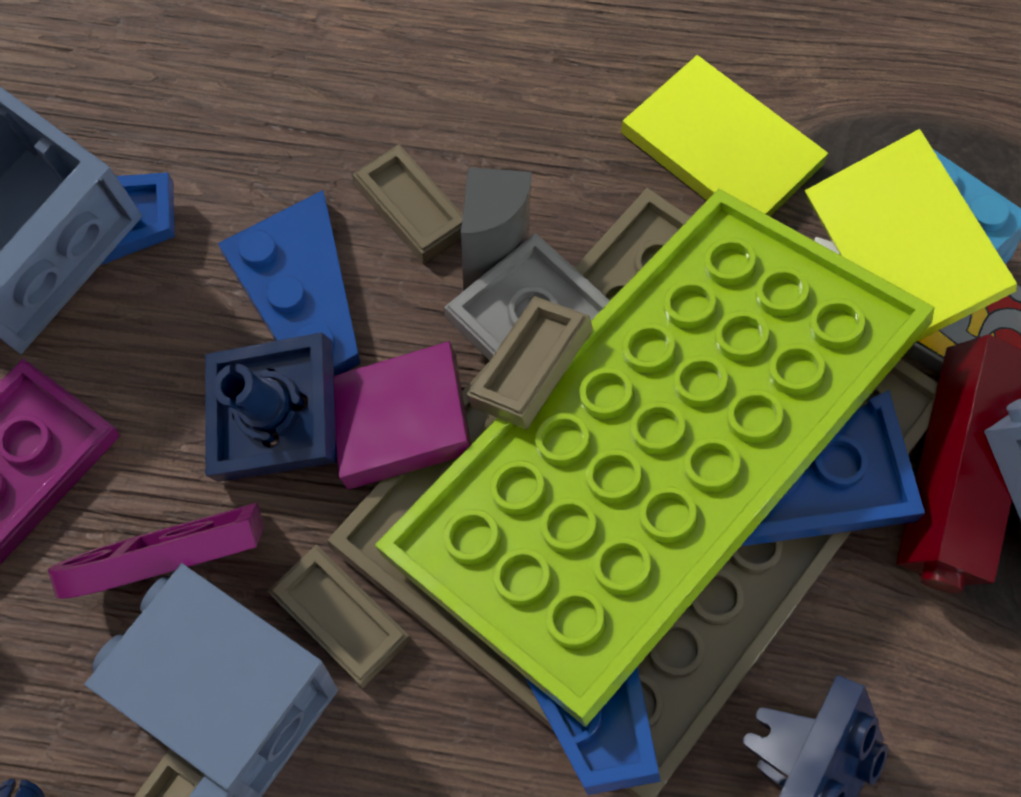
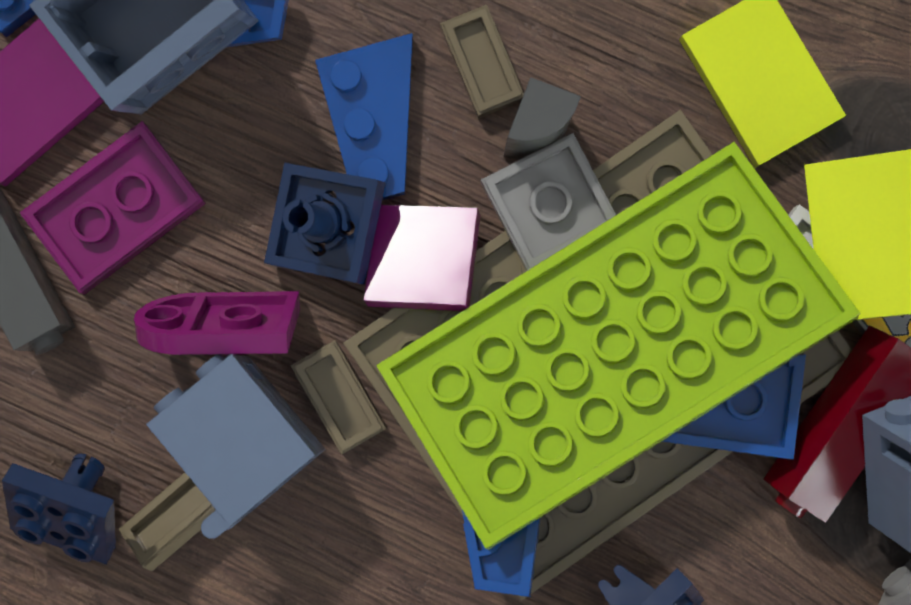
camera: 15 degrees right, 20 degrees up
(530, 362) = (533, 253): dark tan tile -> none

